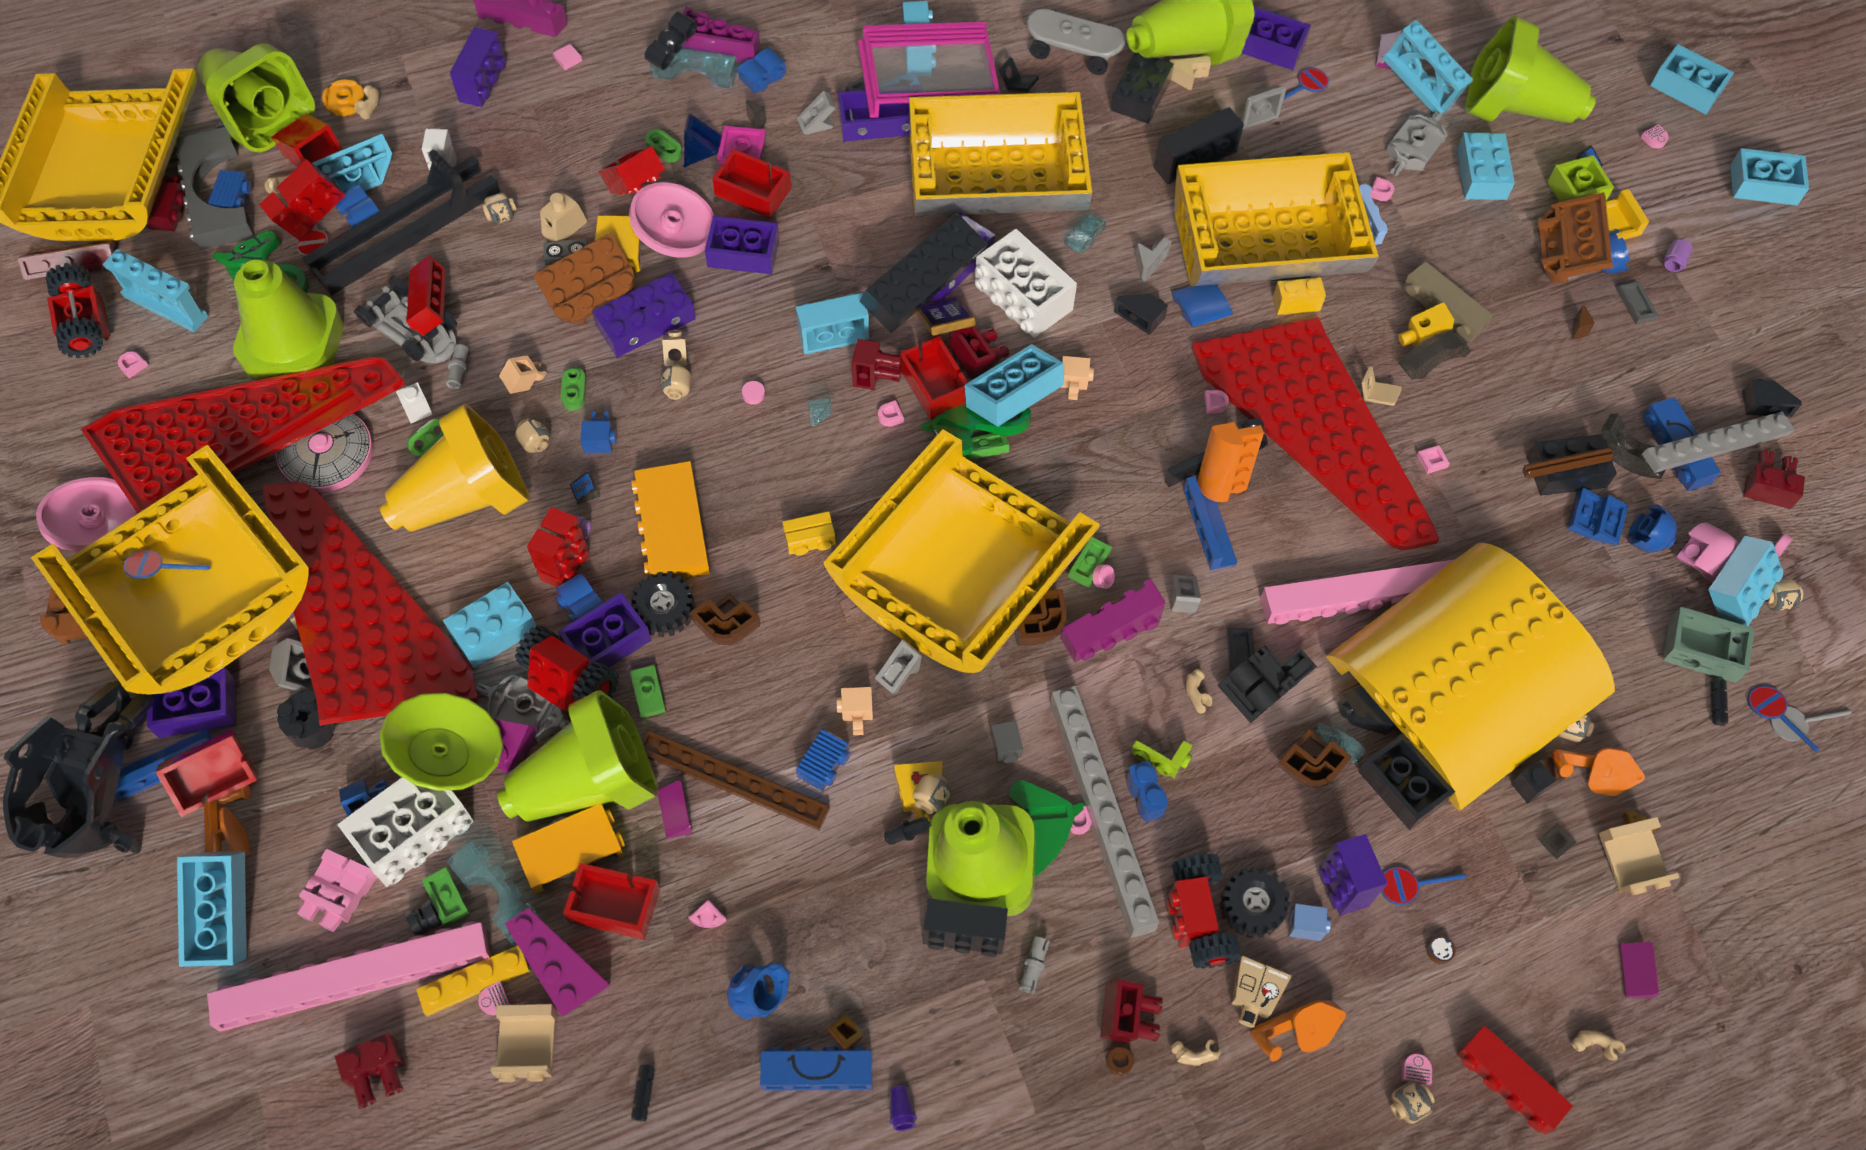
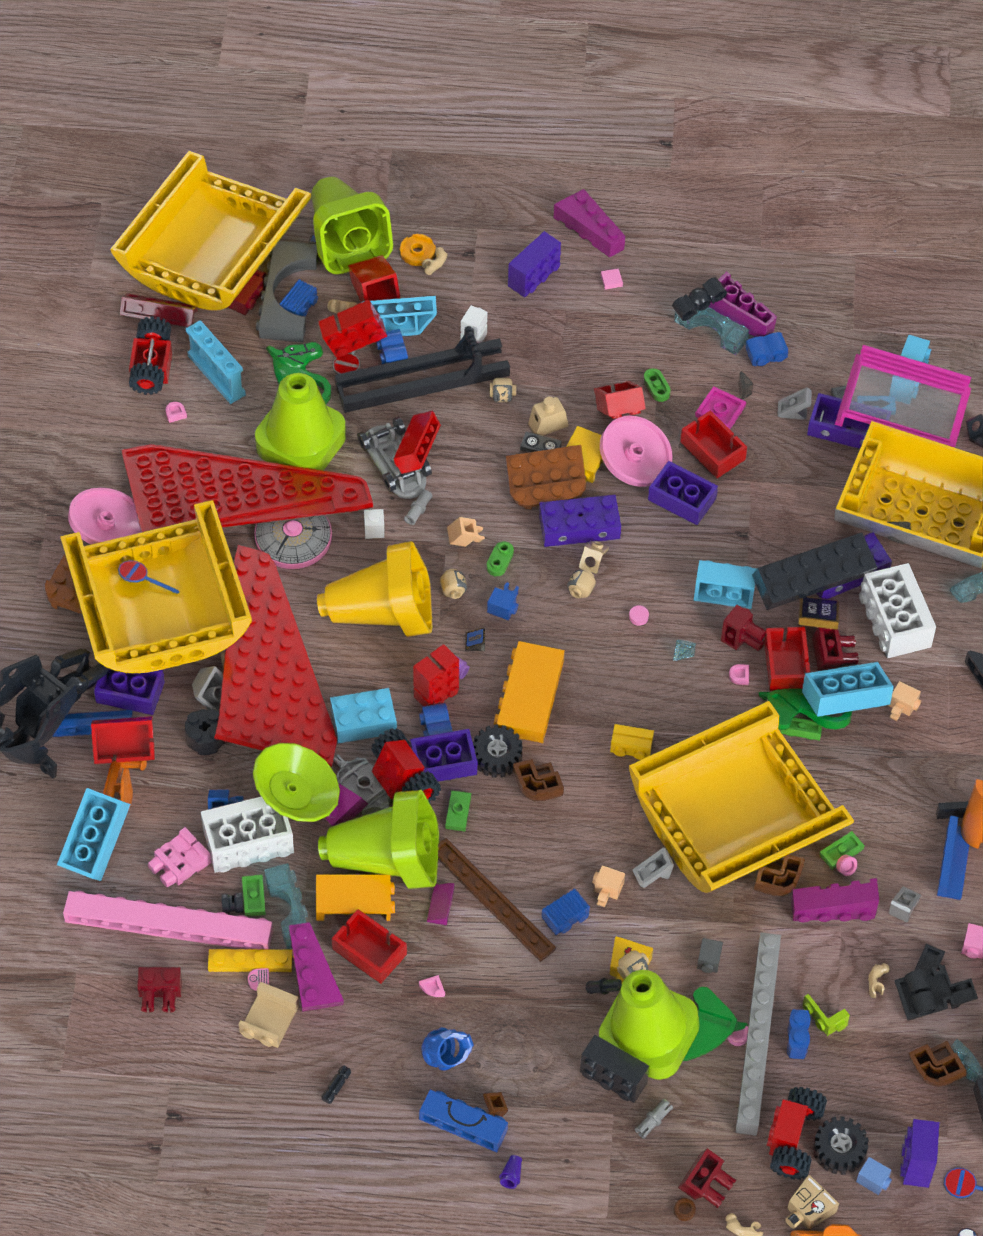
camera: 25 degrees right, 5 degrees down
(426, 436) = (373, 554): bright green plate -> none
(699, 141) = (687, 392): clear blue slope -> none

